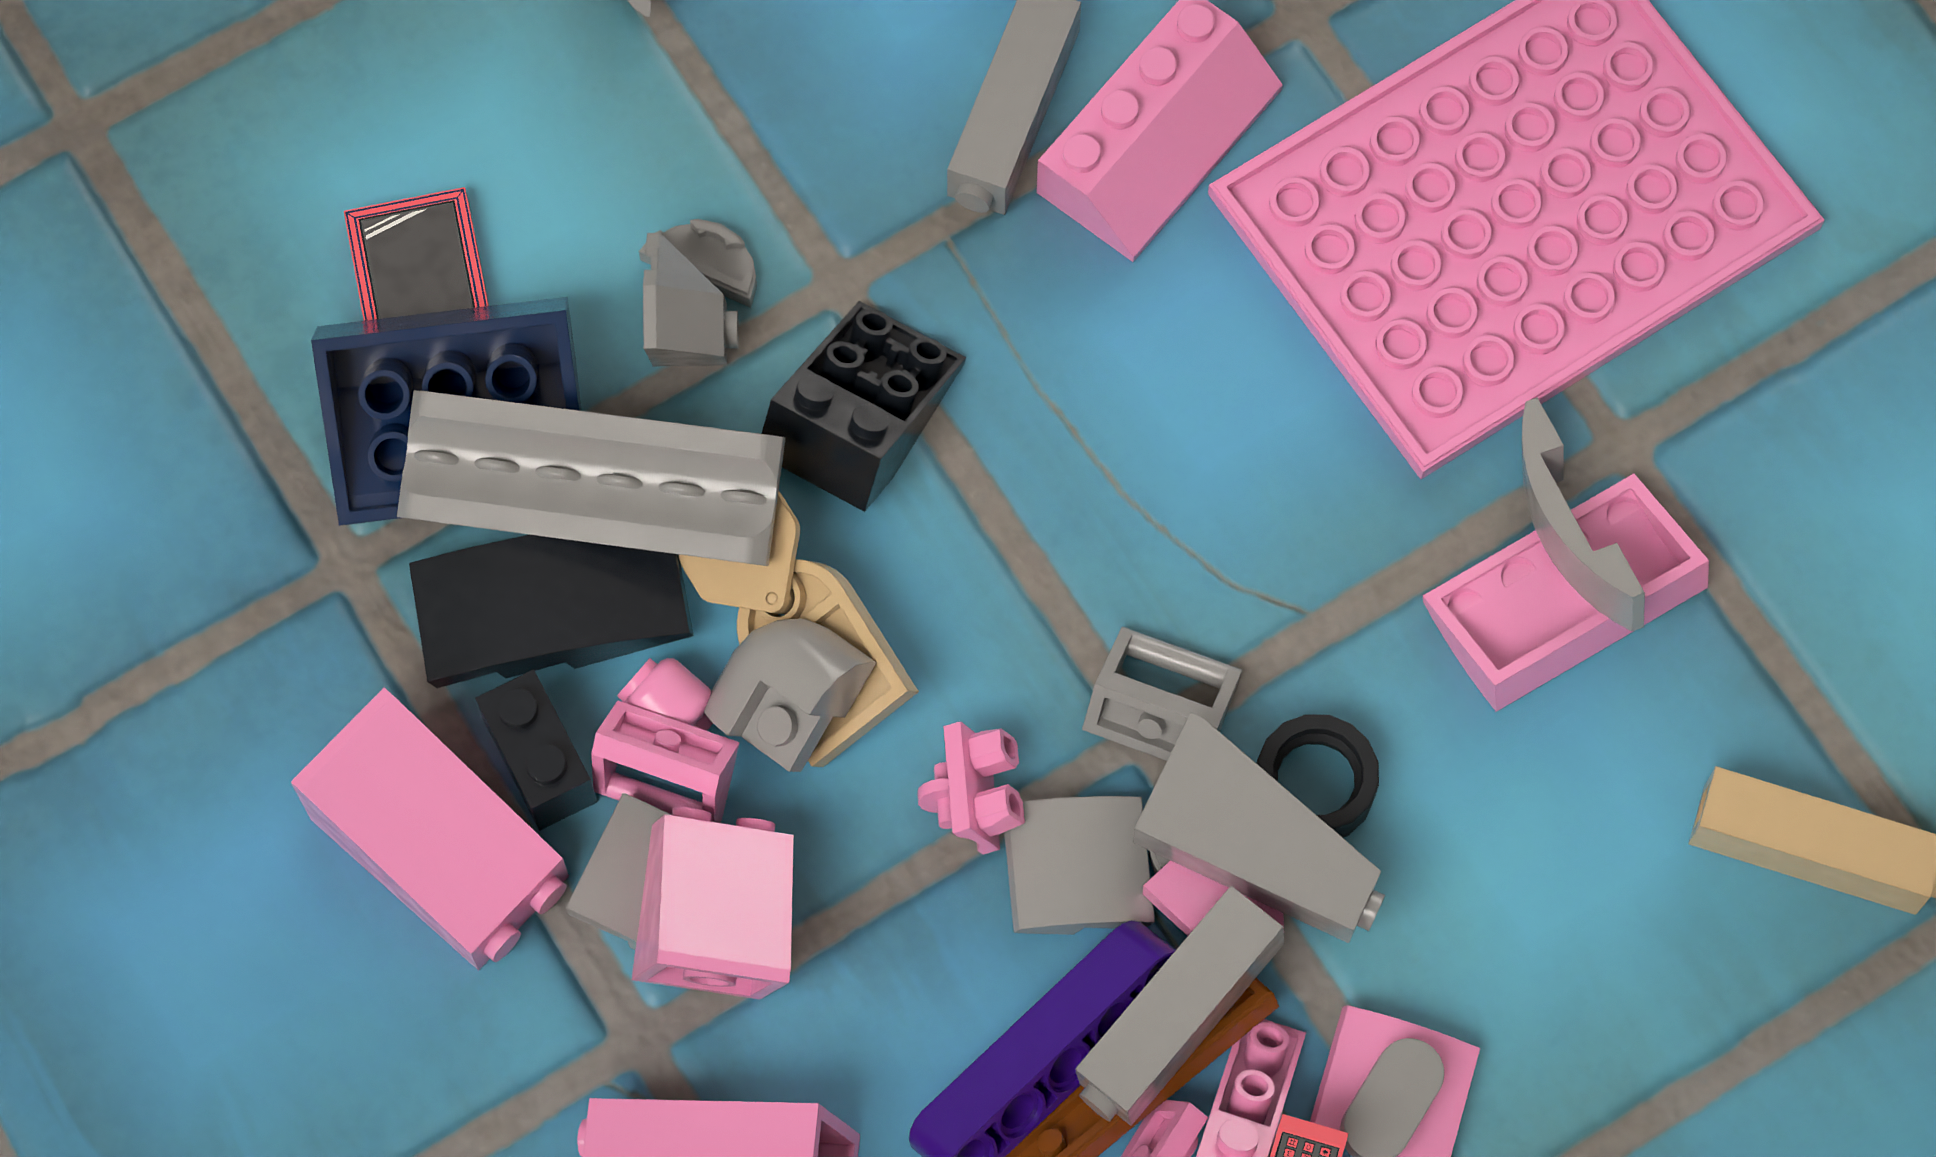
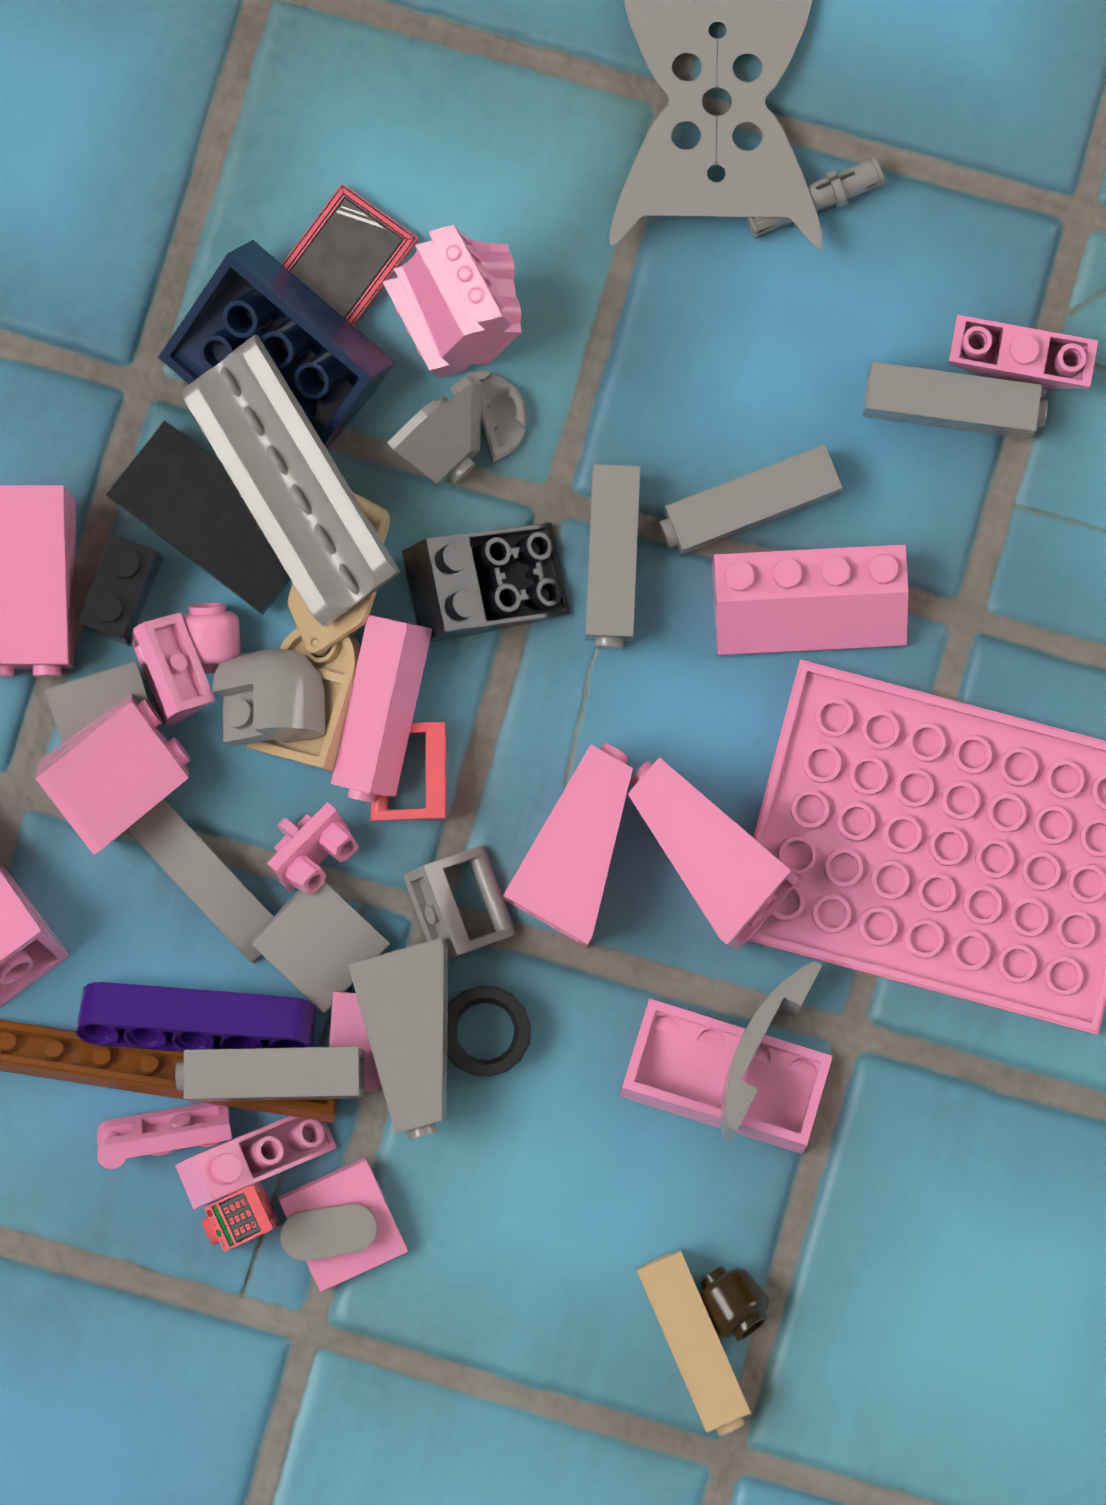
camera: 50 degrees right, 15 degrees up
(565, 186) = (457, 300): none -> bright pink slope
(897, 591) = (381, 708): none -> bright pink brick
(905, 921) = (202, 876): none -> light grey slope
(947, 264) = (612, 555): none -> light grey brick
(1007, 606) = (435, 780): none -> coral tile
(1215, 530) = (572, 854): none -> bright pink slope
(1329, 399) = (717, 859): none -> bright pink slope
(1812, 763) = (734, 1302): none -> dark brown head

